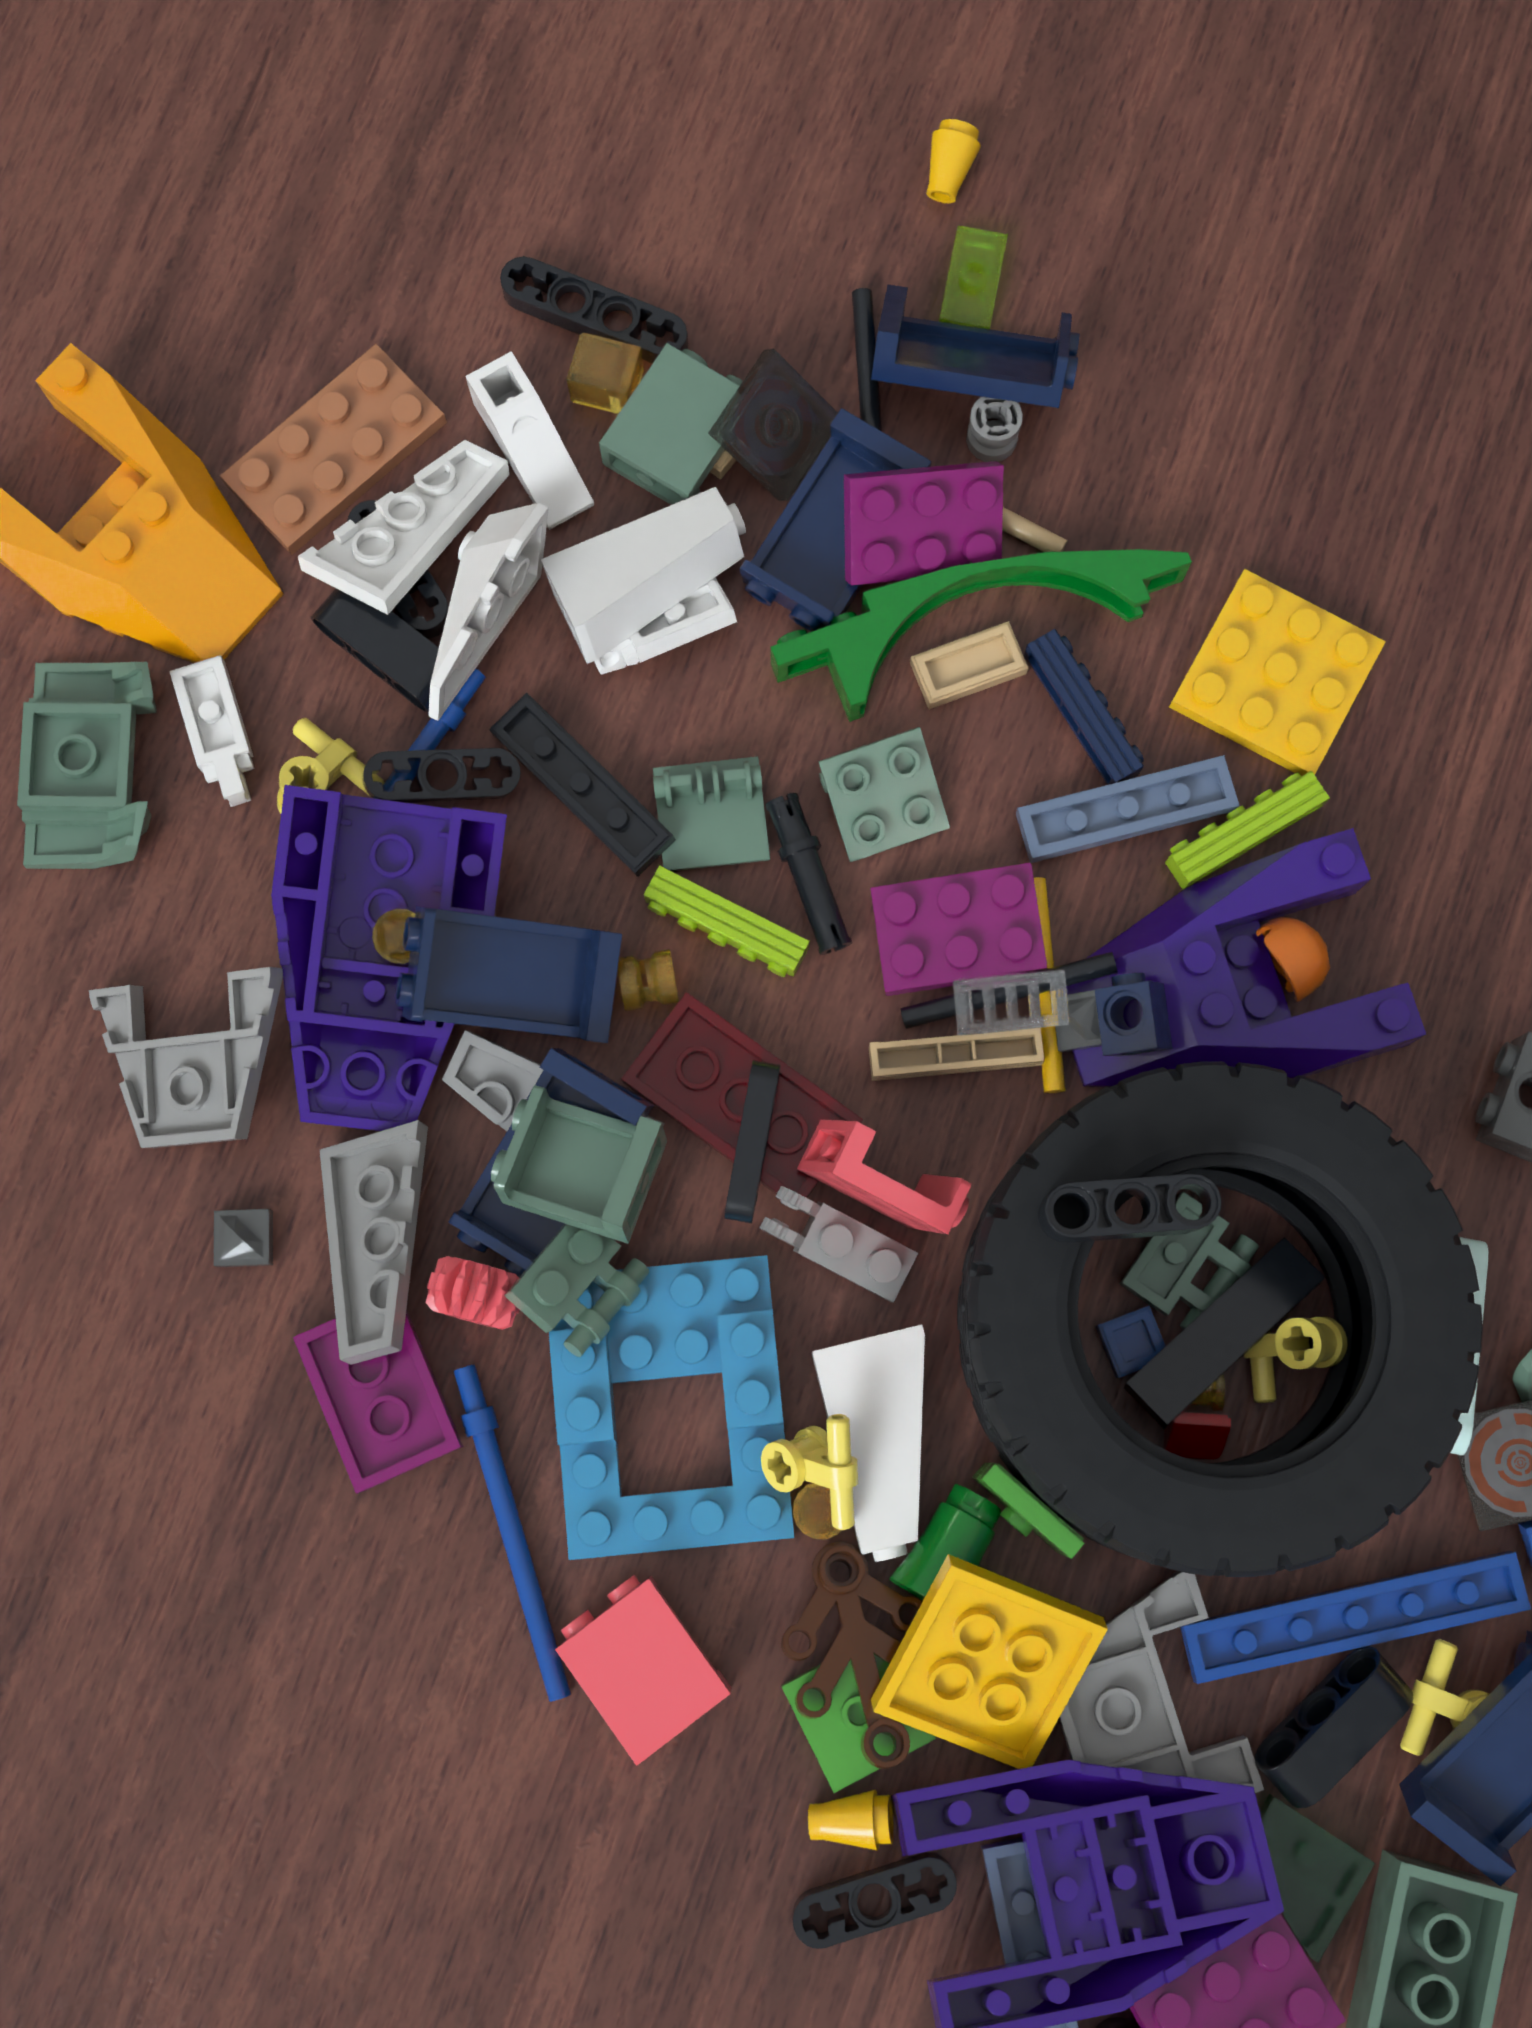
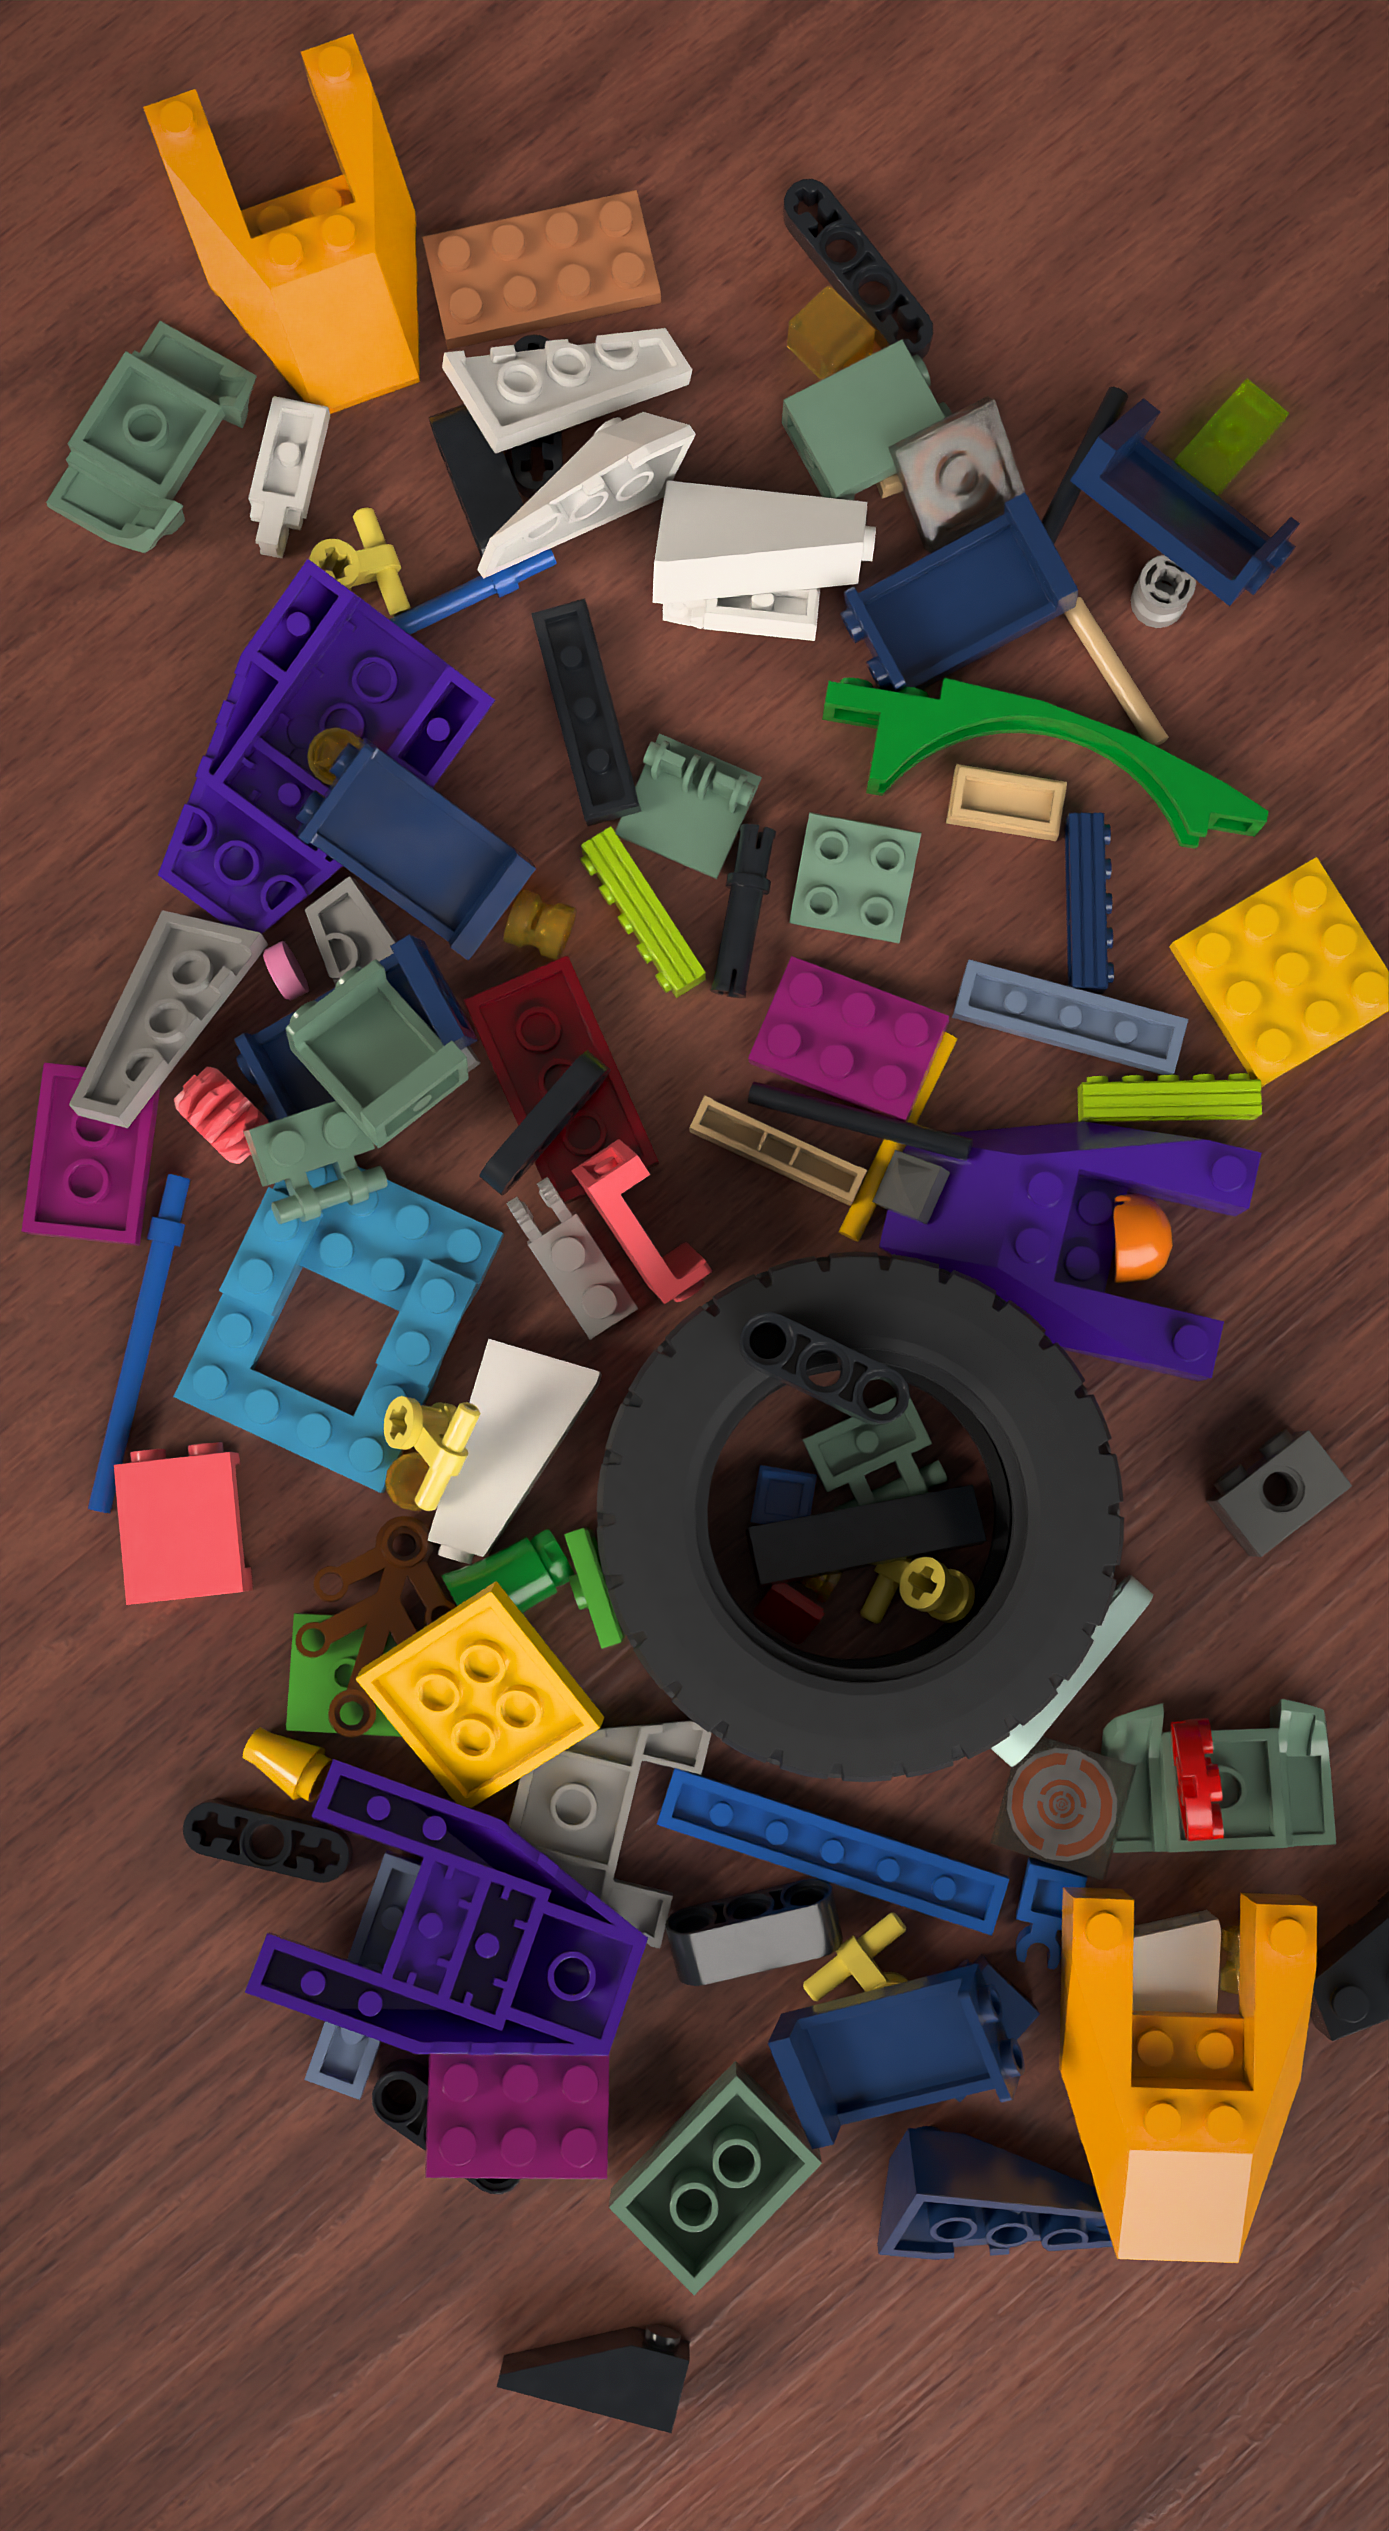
camera: 30 degrees right, 5 degrees up
(197, 1083) = (84, 787): light grey wing -> none
(243, 1238) = (52, 950): dark grey tile -> none
(455, 1140) = (285, 971): none -> bright pink tile
(481, 761) = (419, 624): black beam -> none
(528, 438) = (722, 362): white slope -> none
(921, 520) = (1038, 641): magenta plate -> none
(952, 155) = (1281, 308): yellow cone -> none
(964, 1003) = (806, 1109): clear slope -> none
(1153, 1030) = (966, 1227): dark blue brick -> none
(1313, 1873) = (657, 2041): clear green wing -> none

